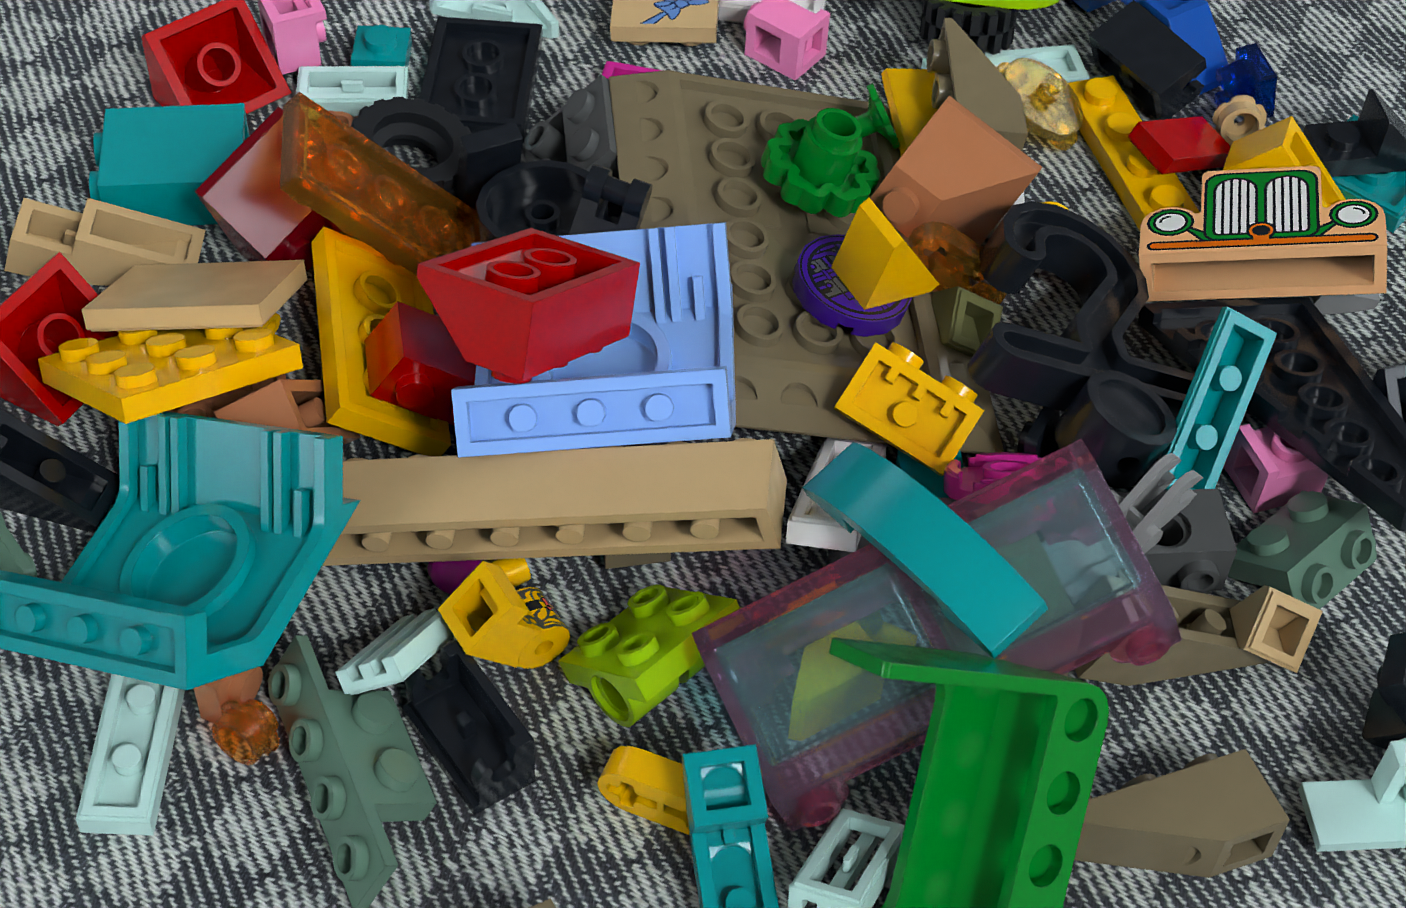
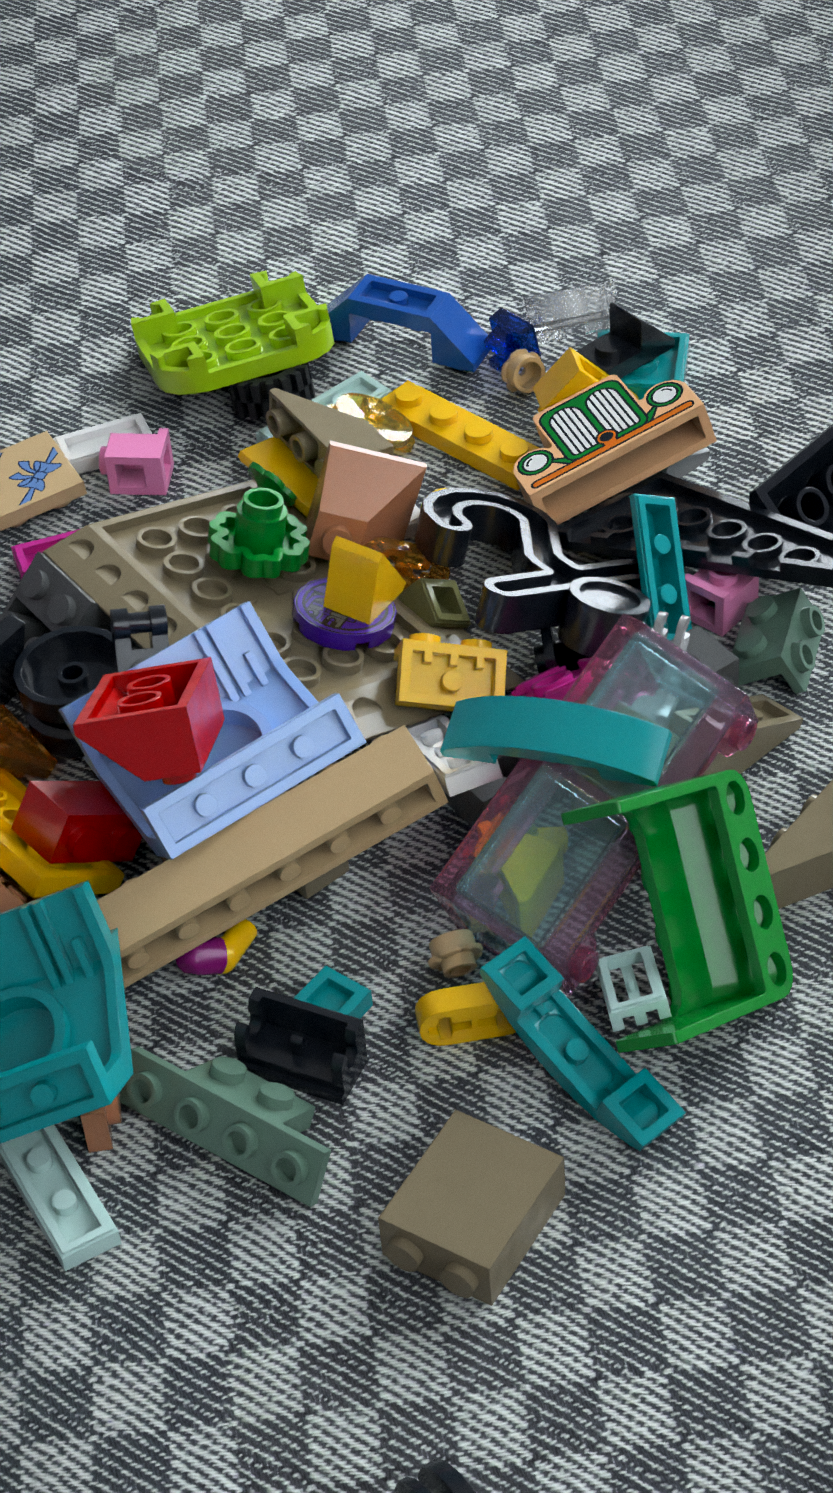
camera: 25 degrees left, 5 degrees down
(246, 730) = (137, 1137): clear orange plate -> none
(395, 653) = (205, 1023): light aqua tile -> none
(510, 623) = (273, 958): yellow leg -> none
(540, 695) = (337, 993): none -> teal plate
(644, 650) = (388, 928): lime plate -> none
(700, 715) = (455, 953): none -> tan plate
(1148, 61) = (429, 356): black hinge -> none
(1180, 144) = (496, 406): red tile -> none
(1275, 626) = (794, 696): tan slope -> none
(1328, 77) = (570, 309): none -> clear slope

